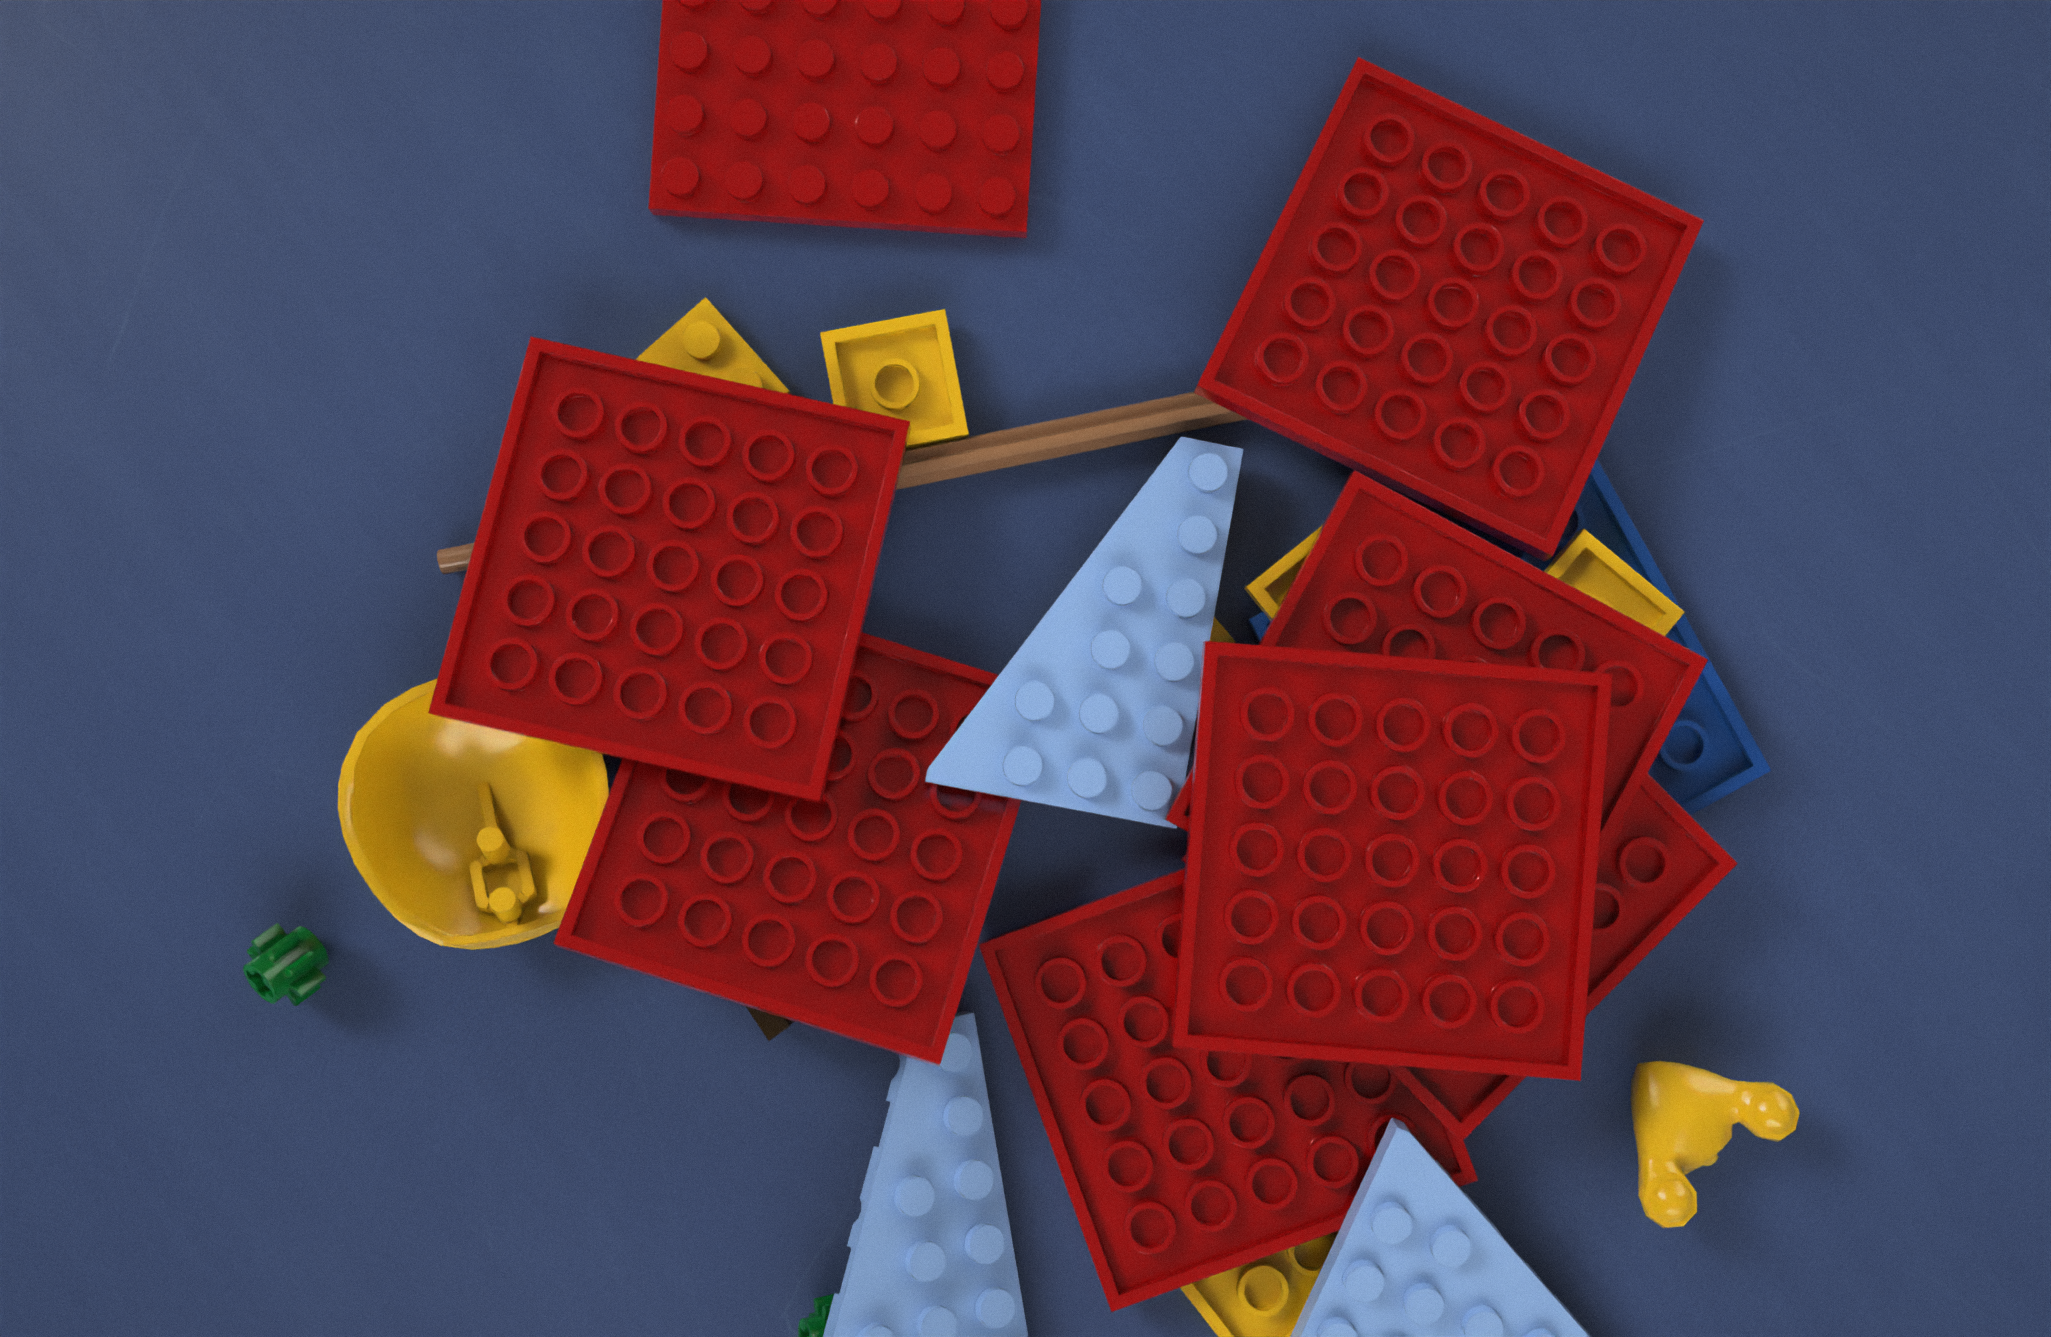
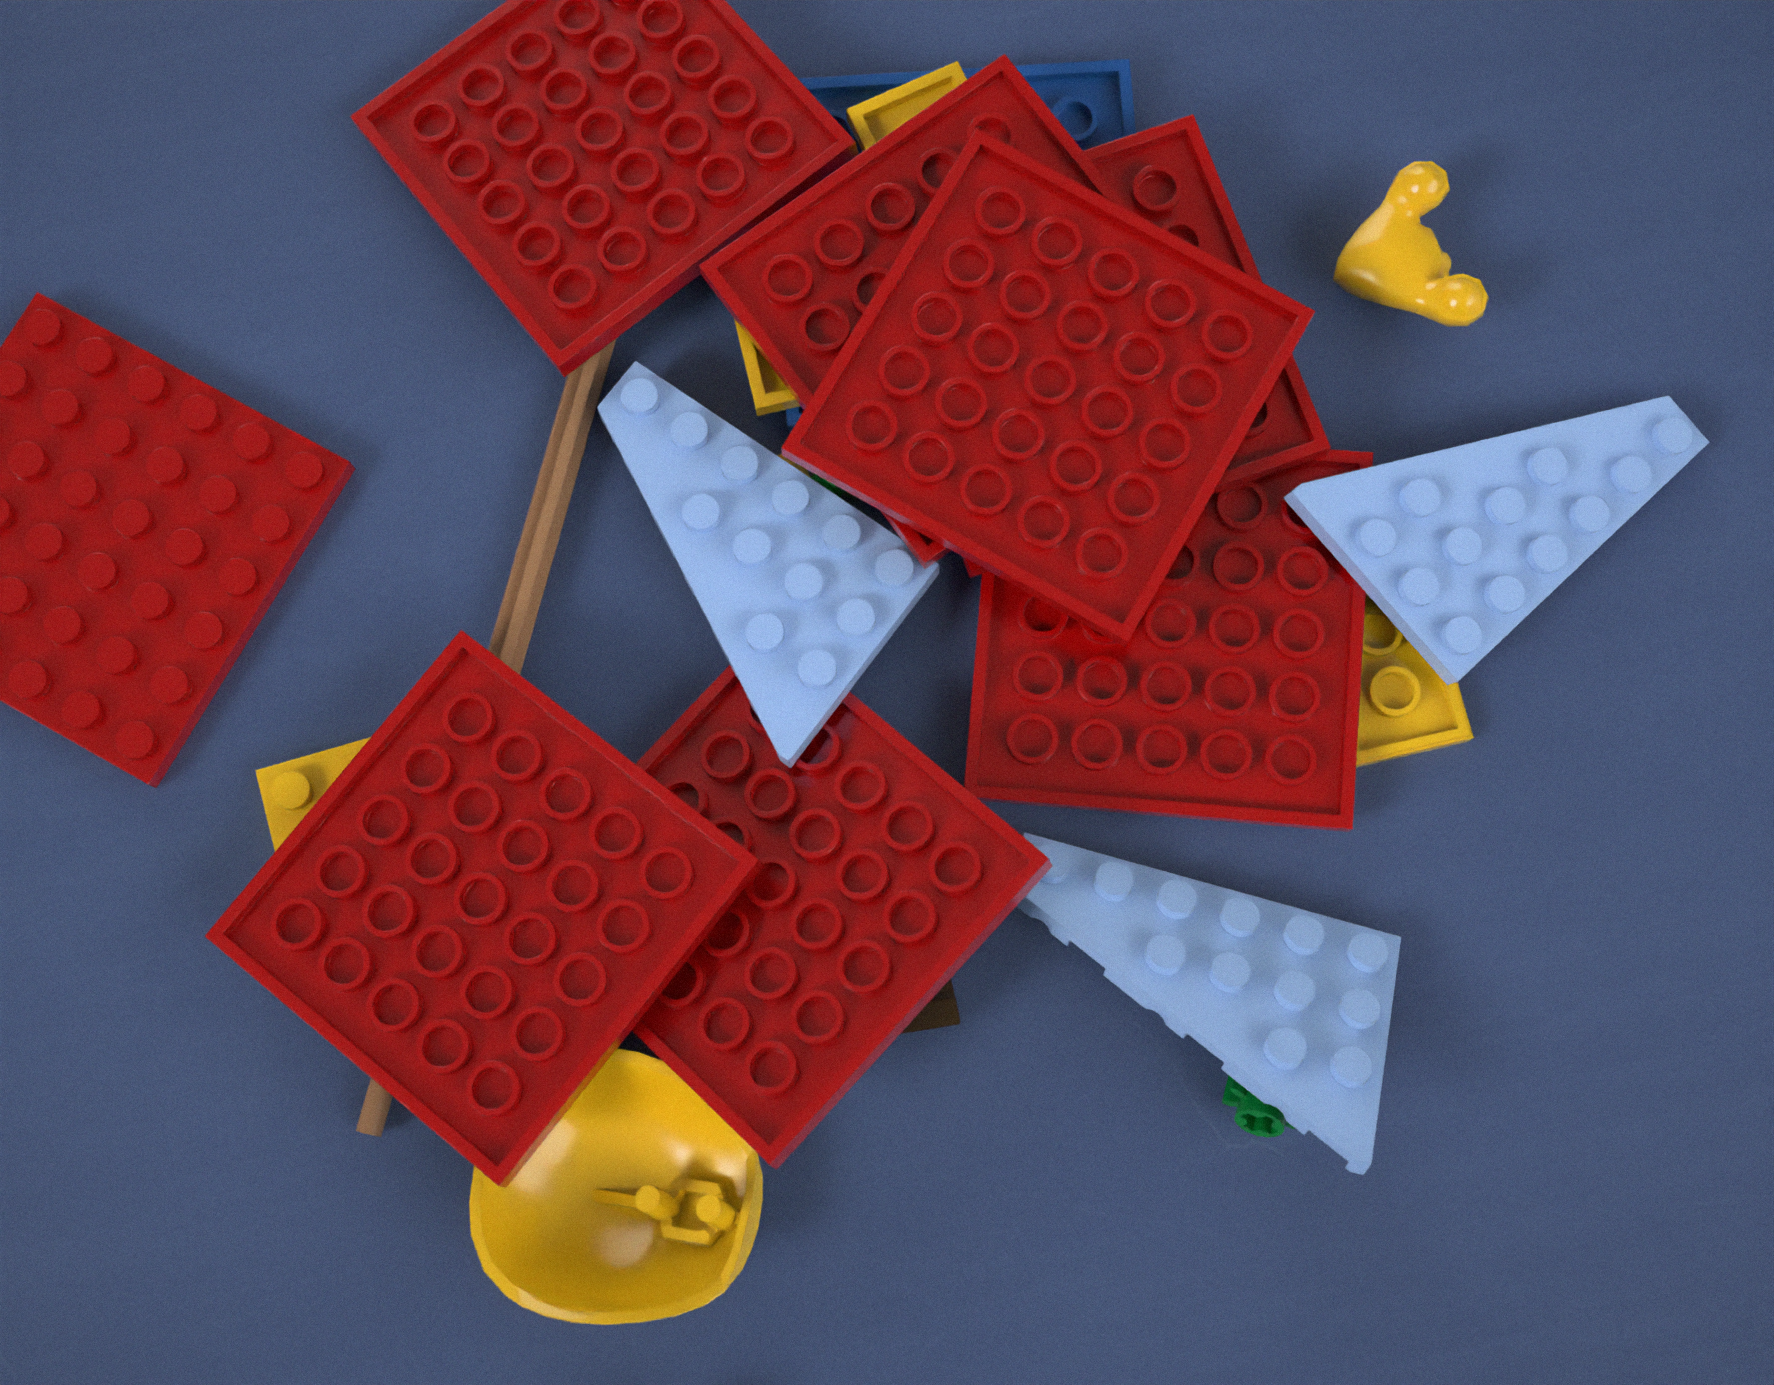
camera: 65 degrees left, 10 degrees down
(901, 372) = (410, 623): yellow plate -> none

